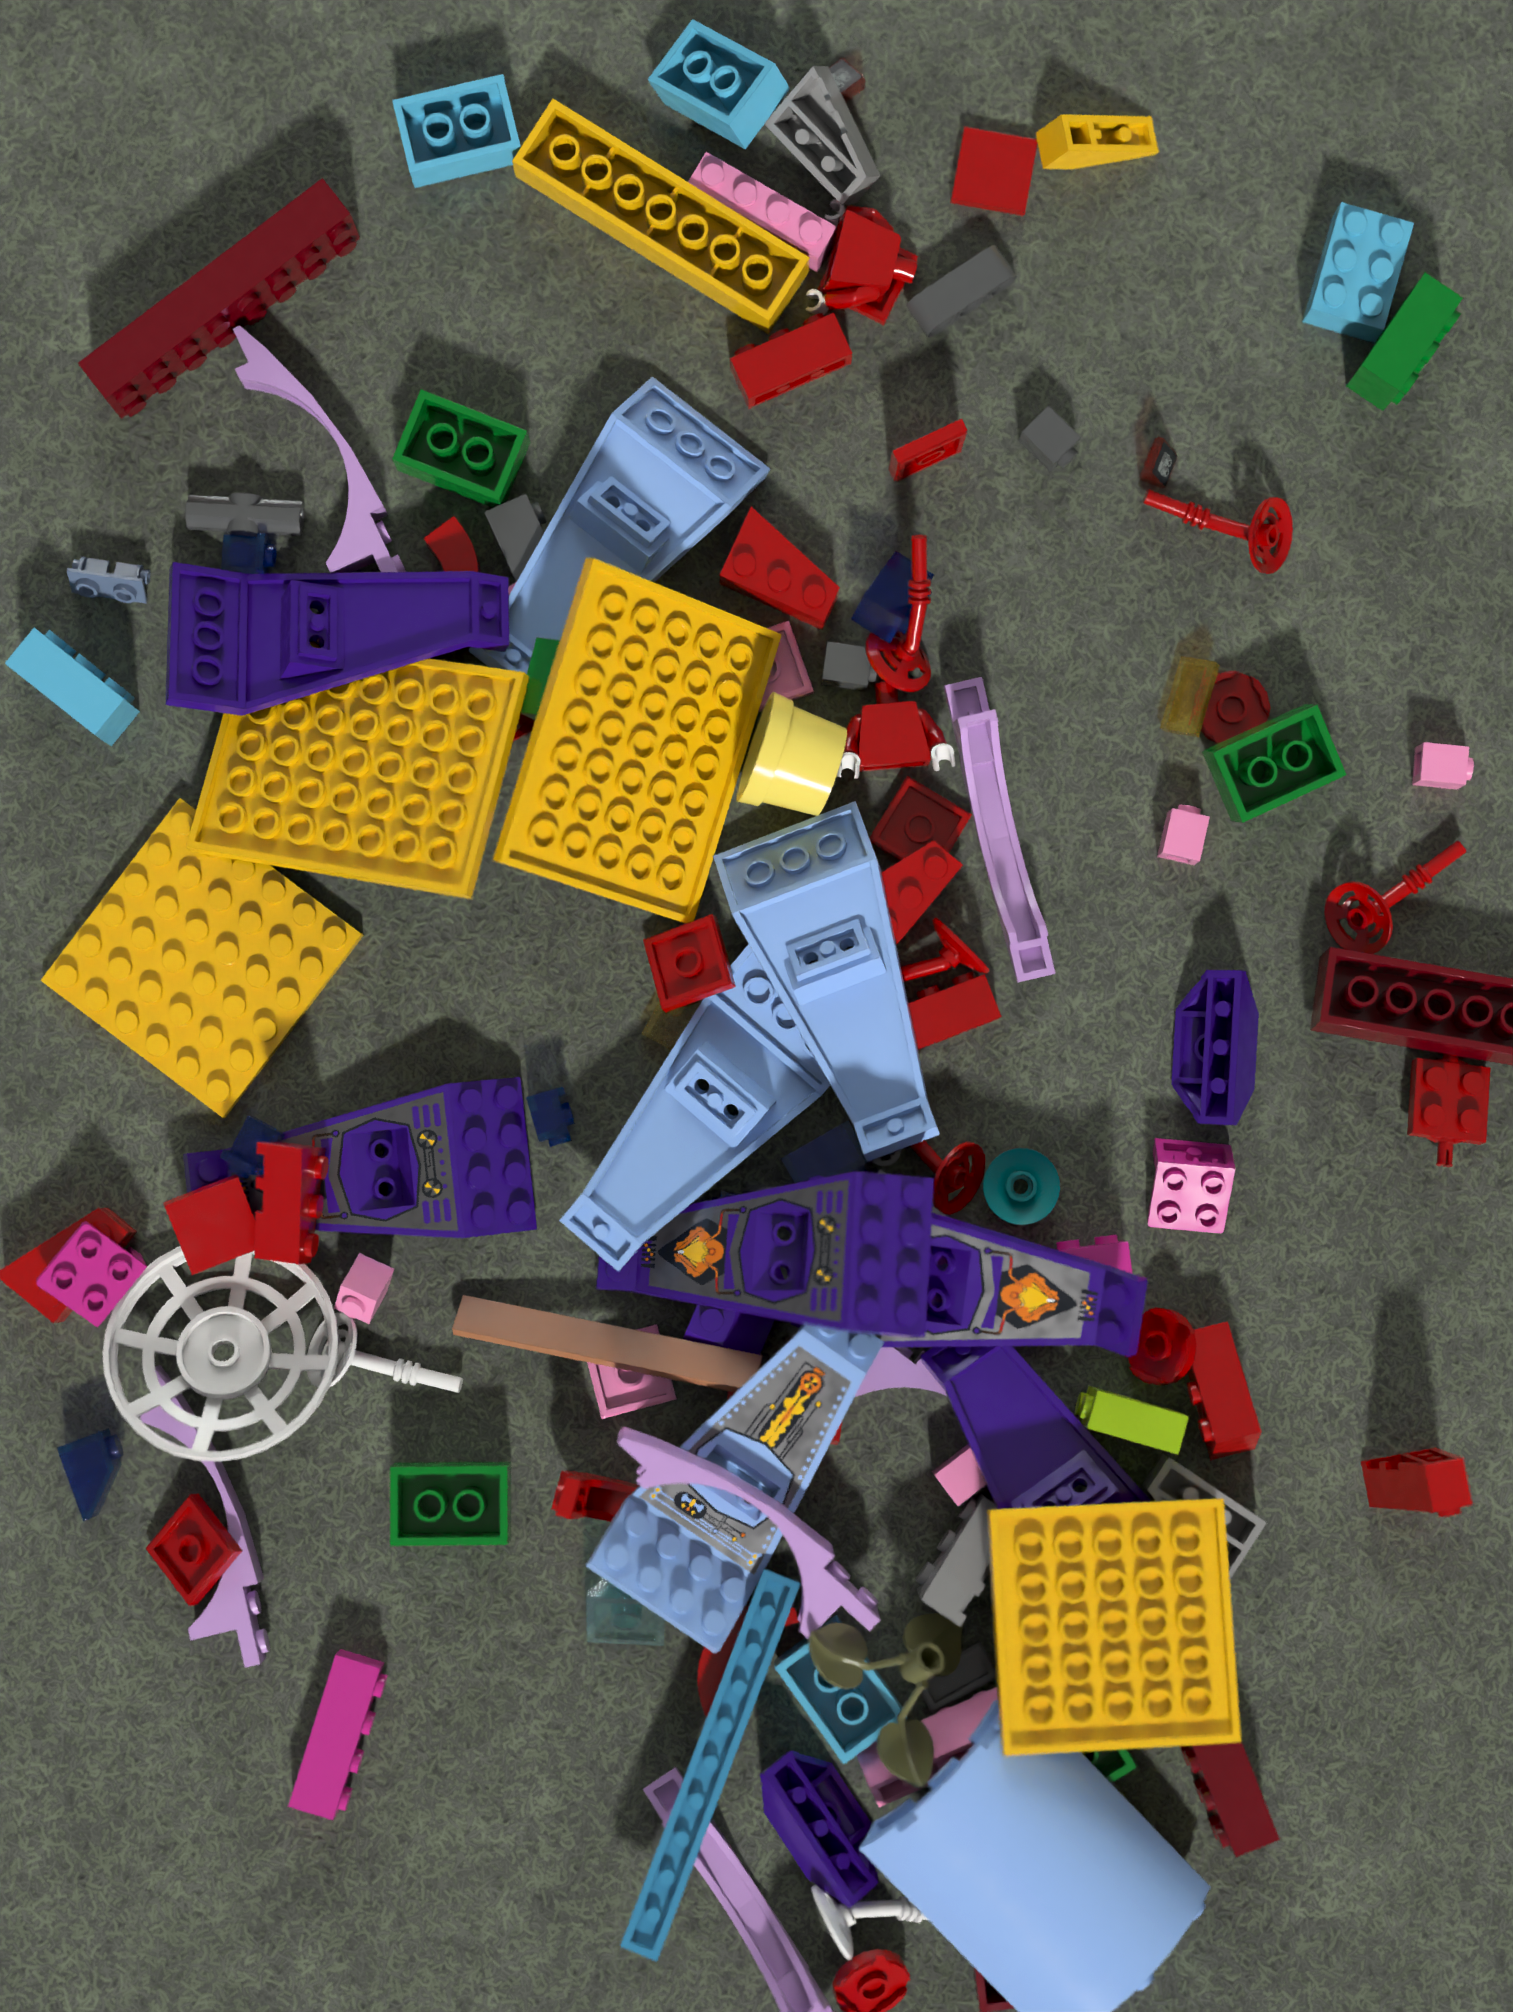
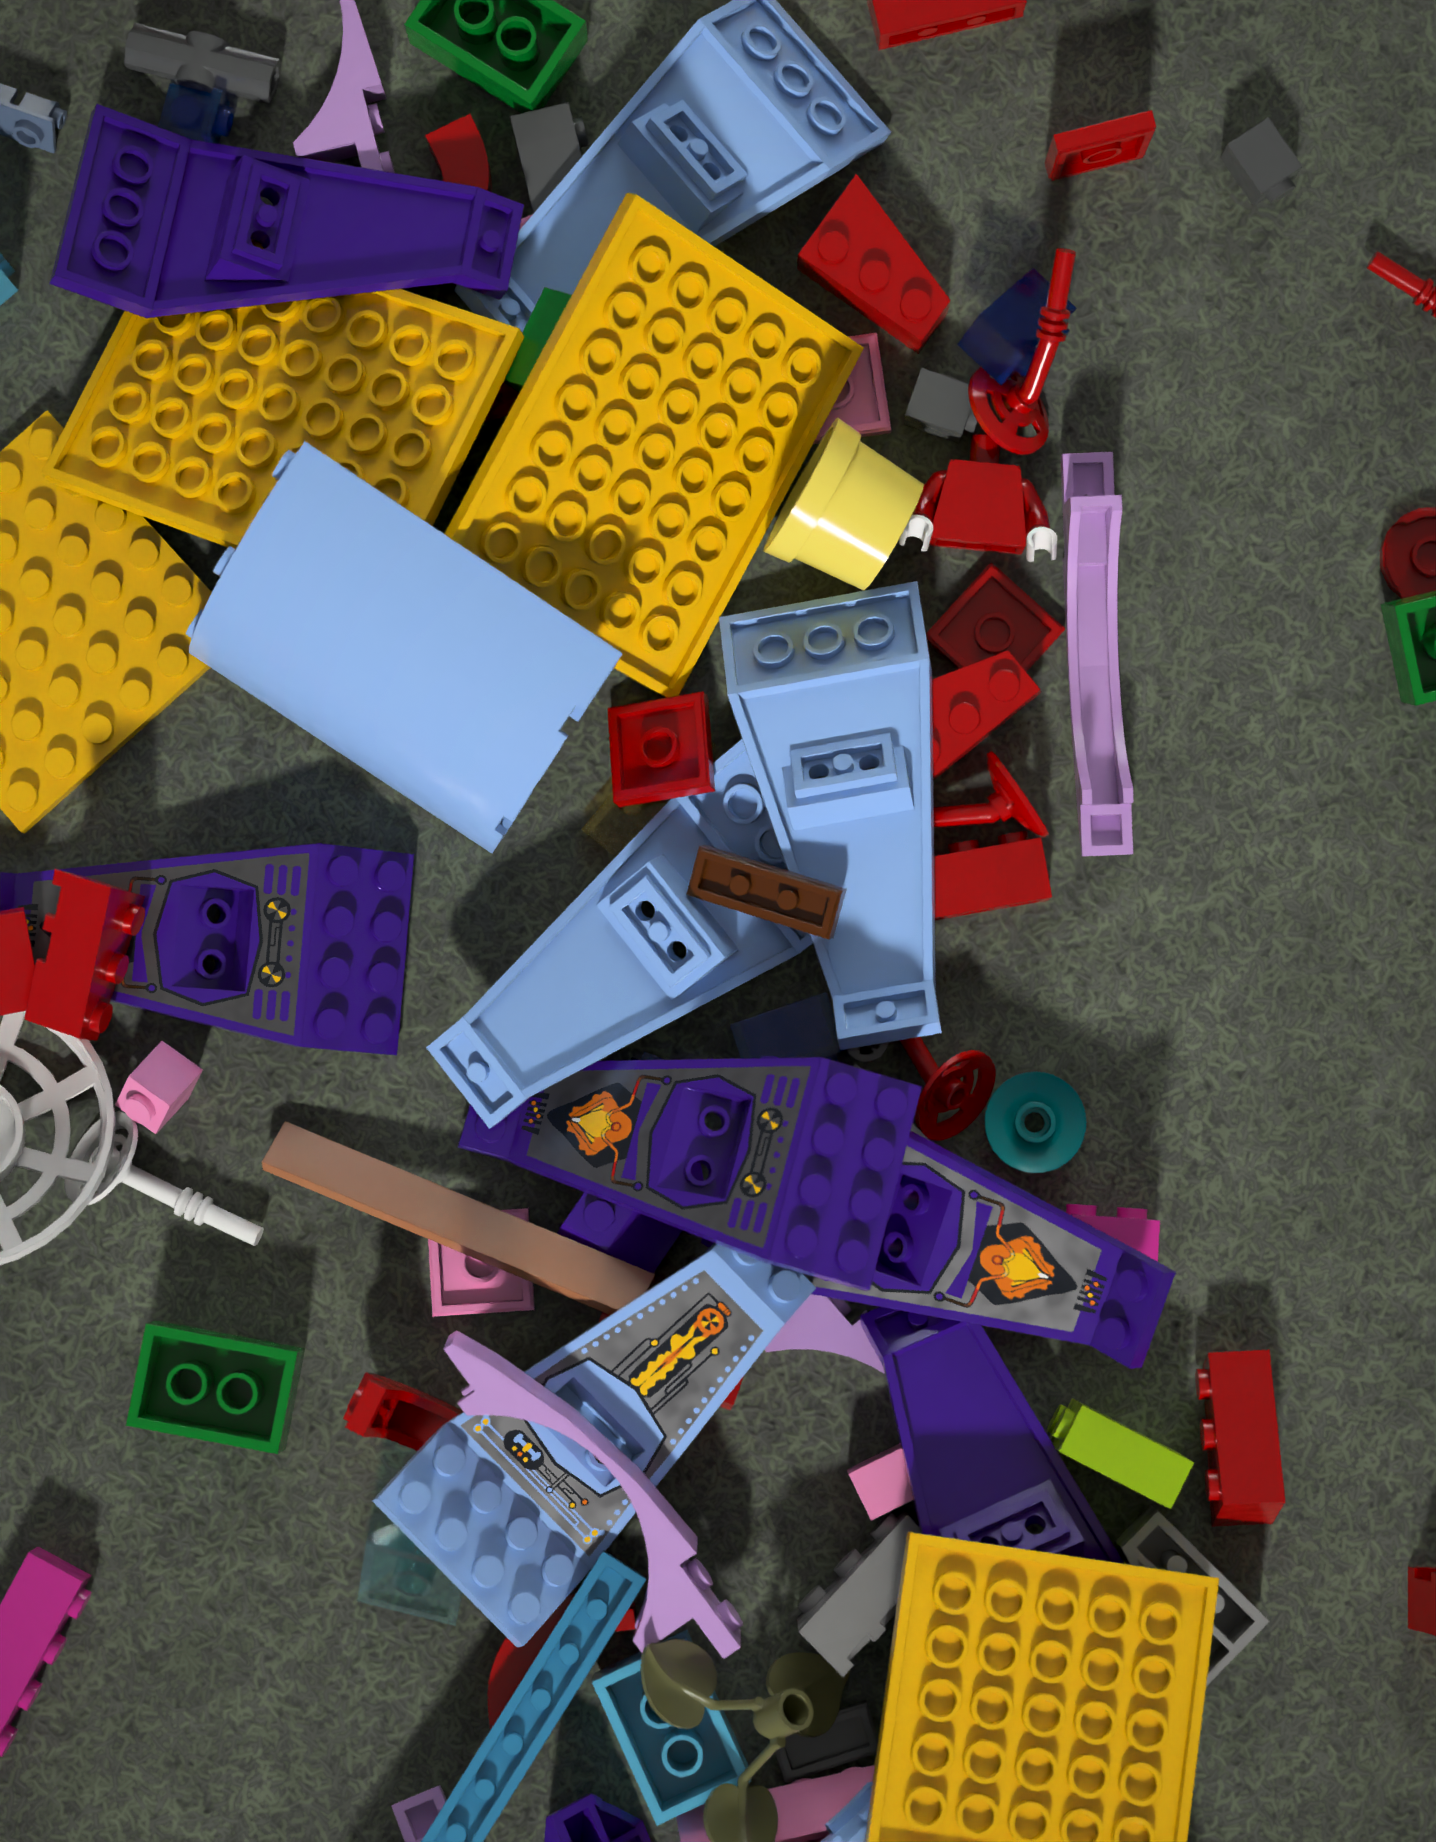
camera: 20 degrees right, 0 degrees up
(243, 1153) = (35, 885): clear blue bracket -> none
(480, 927) = (398, 646): none -> light blue panel
(551, 1116) = (444, 912): clear blue brick -> none
(789, 1054) = (766, 891): none -> reddish brown tile
(1158, 463) = (1397, 221): slope -> none
(1164, 1347) = (1179, 1368): red tile -> none
(1183, 835) = (1335, 708): bright pink brick -> none
(1189, 696) = (1378, 530): clear yellow tile -> none
(1191, 1185) = (1256, 1165): bracket -> none
(1216, 1047) = (1324, 991): dark purple wedge -> none

